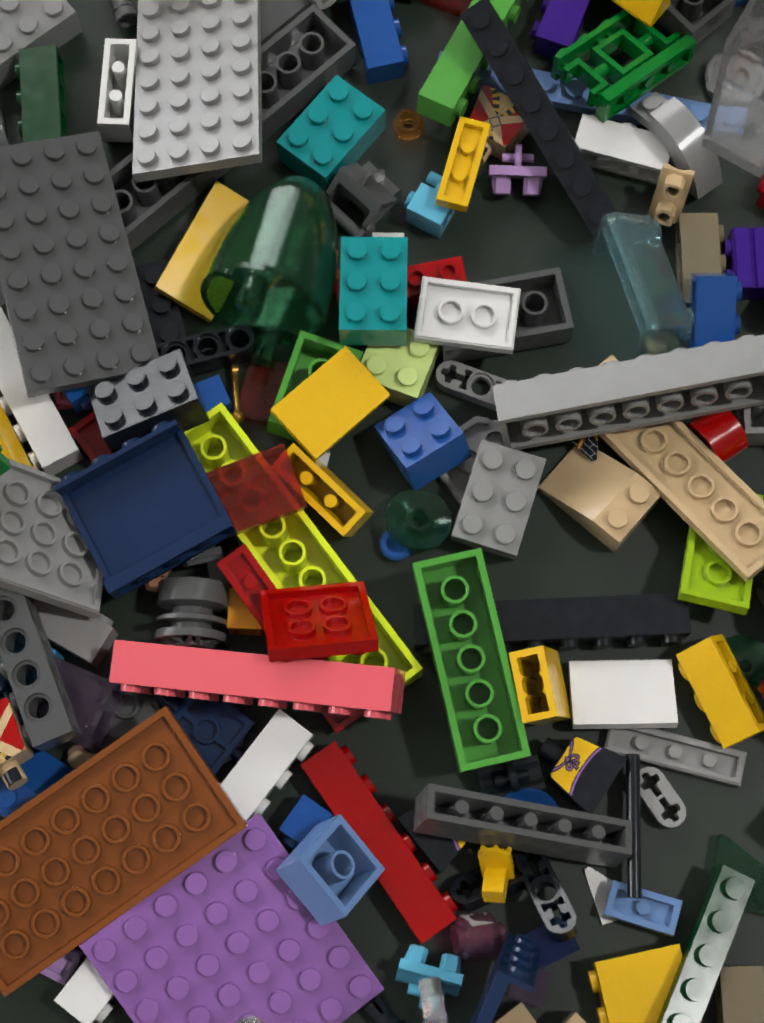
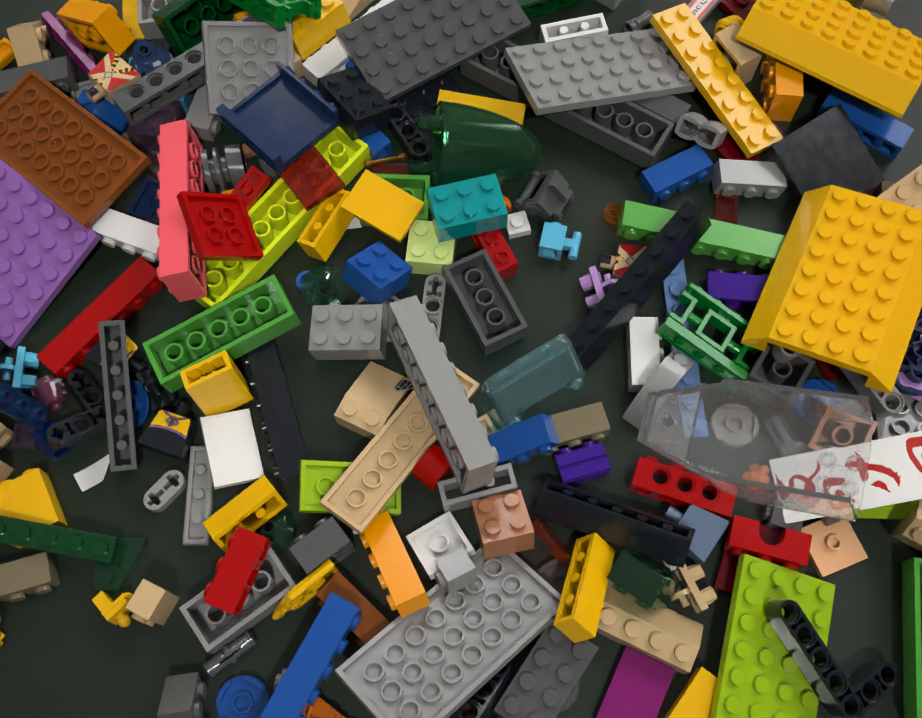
camera: 75 degrees right, 5 degrees down
(302, 821) = (104, 271): blue brick -> none
(330, 870) = (67, 284): medium blue brick -> none
(331, 132) = (588, 165): teal brick -> none
(463, 164) = (587, 245): yellow plate -> none
(467, 315) = (471, 274): white tile -> none
(496, 870) = (86, 391): yellow piece -> none
(633, 813) = (137, 474): black bar -> none
(650, 912) = (85, 496): medium blue plate -> none
(670, 194) = (614, 393): tan hips -> none

